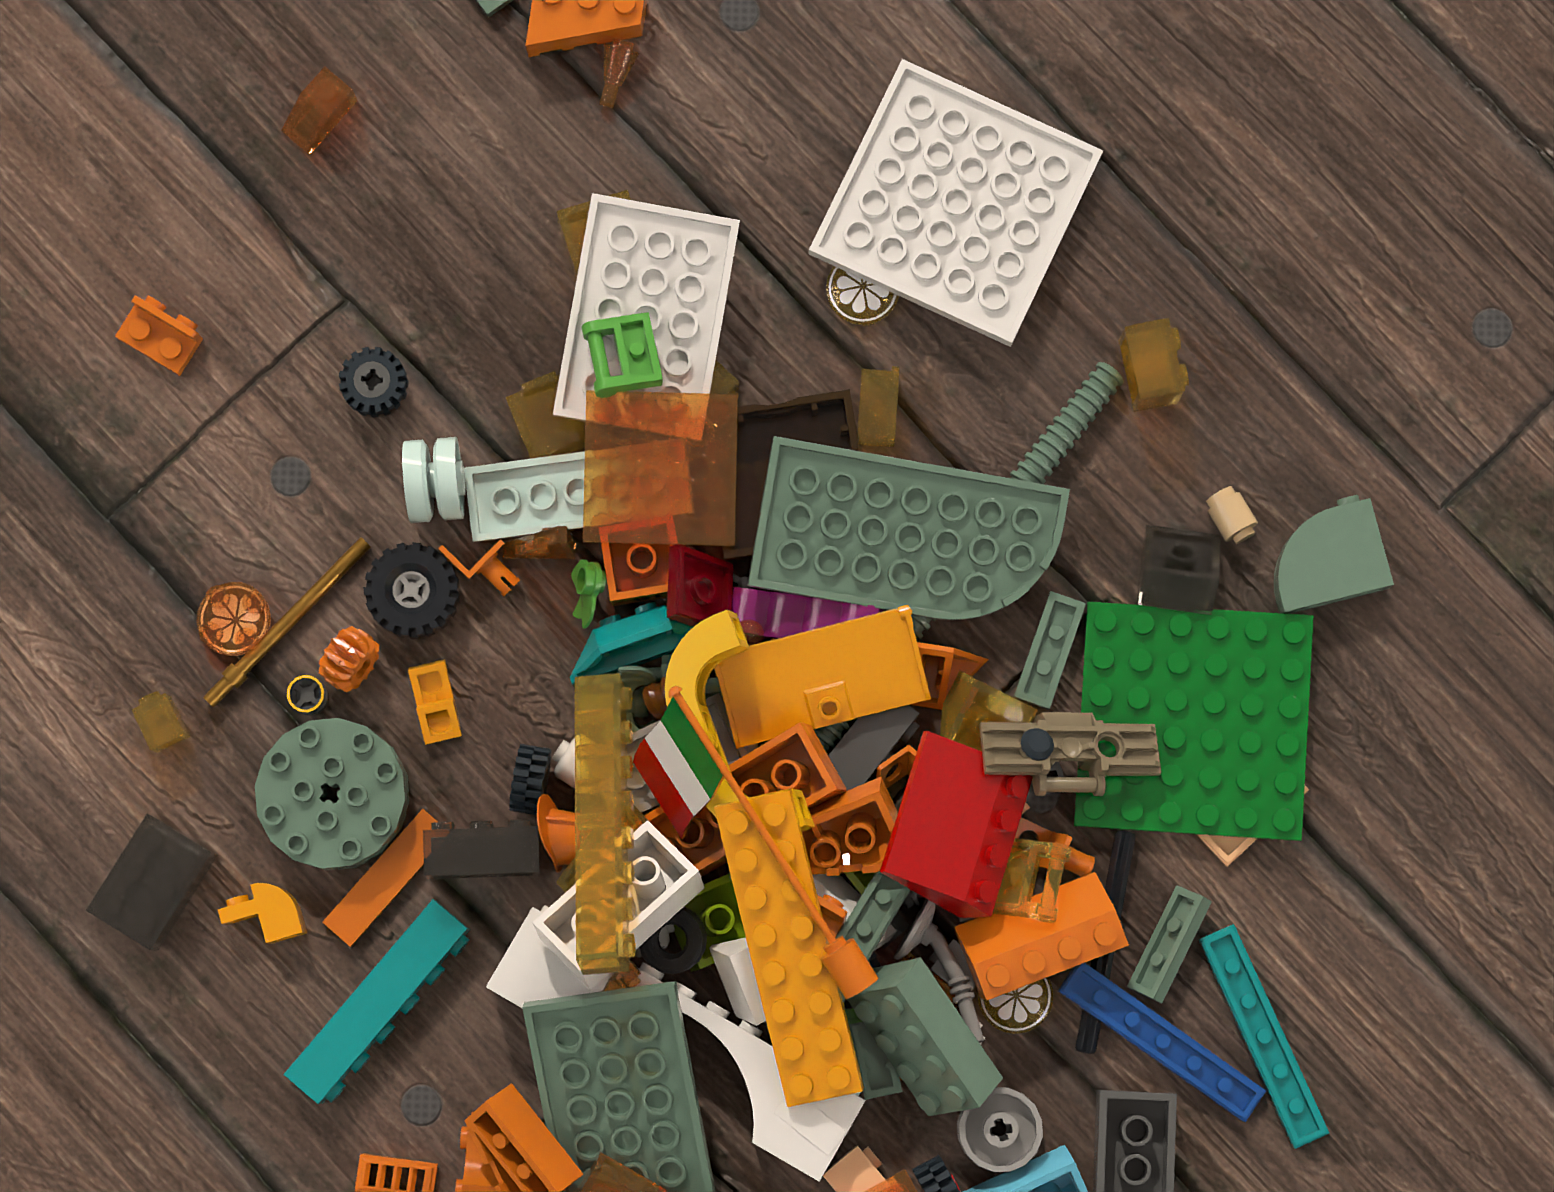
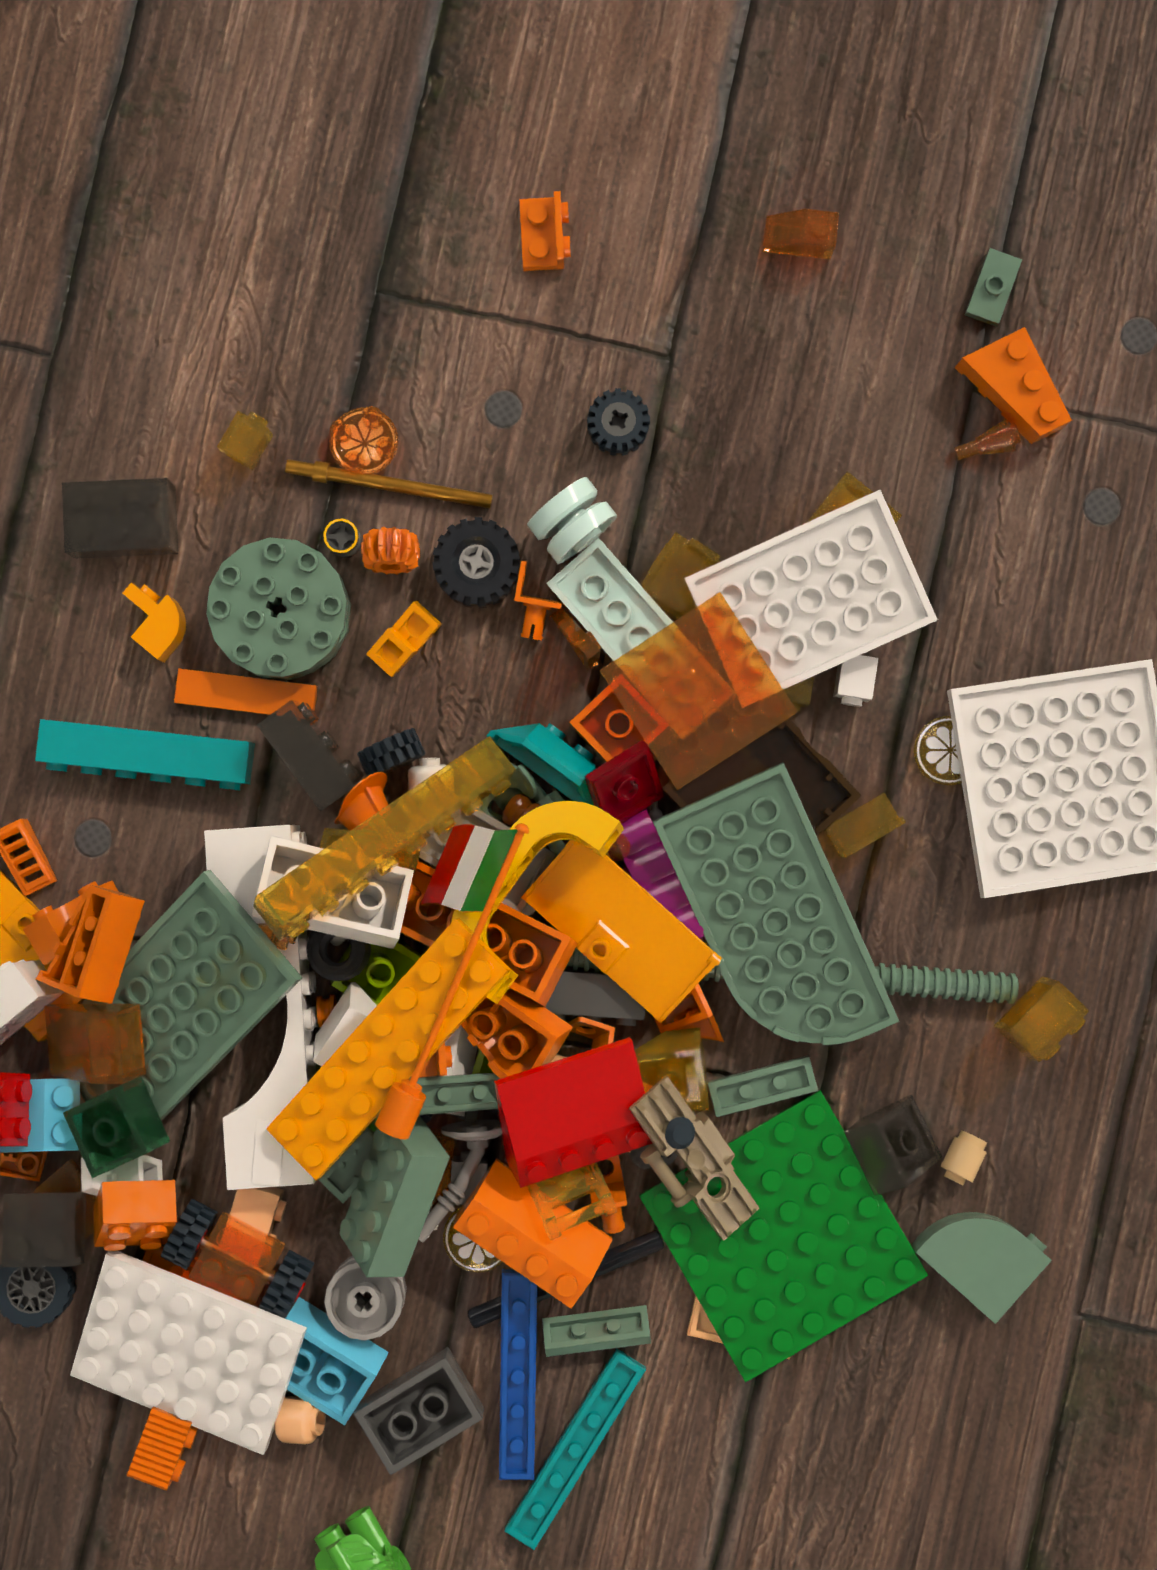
camera: 50 degrees right, 5 degrees up
(589, 582) = (572, 696): bright green plate -> none
(634, 350) = (776, 609): bright green plate -> none
(718, 994) = (324, 1008): none -> orange bush
(745, 327) = (856, 680): none -> white brick

